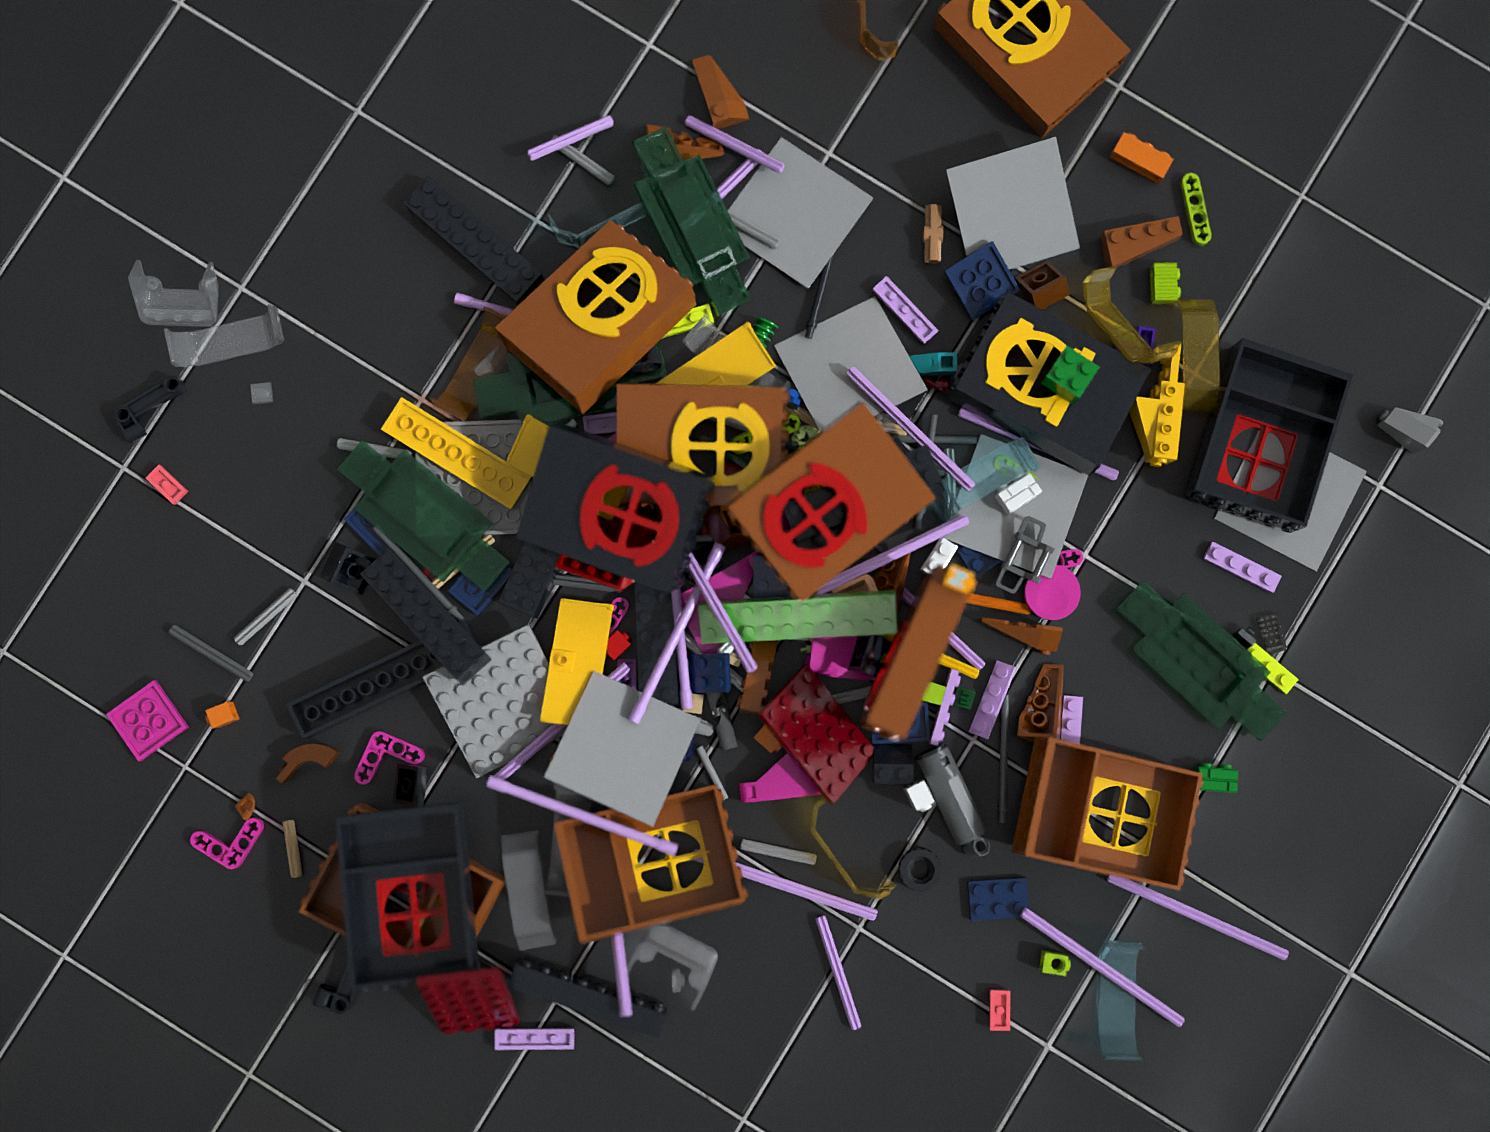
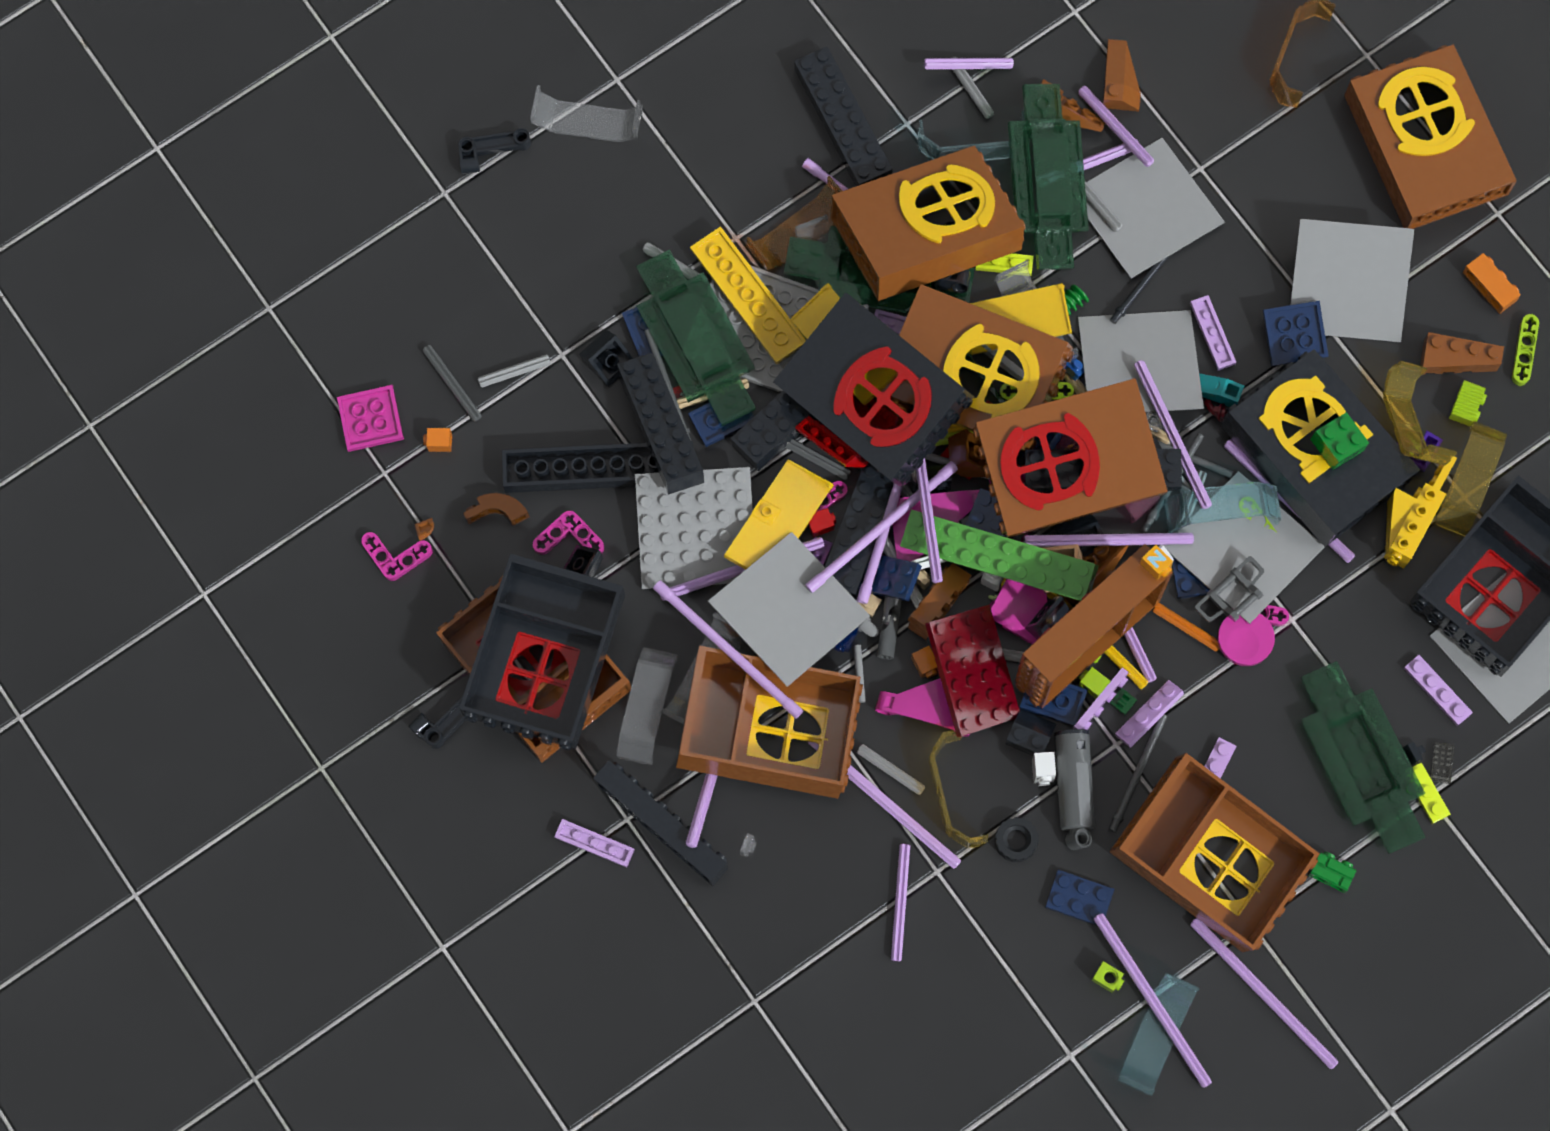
camera: 30 degrees right, 10 degrees down
(167, 484) = (477, 221): coral plate -> none
(175, 306) = (552, 72): clear windscreen -> none
(261, 393) = (596, 176): clear plate -> none
(292, 848) = (449, 583): tan axle -> none
(469, 1000) = (555, 772): dark red plate -> none
(682, 949) = (779, 834): clear windscreen -> none
(932, 234) = (1267, 275): medium nougat piece -> none
(999, 1009) = (1038, 999): coral plate -> none
(1018, 493) = (1250, 534): white brick -> none
(1037, 636) = (1215, 672): dark orange wedge -> none
(1043, 285) = (1352, 360): reddish brown slope -> none
(1044, 705) = (1197, 736): dark orange wedge -> none

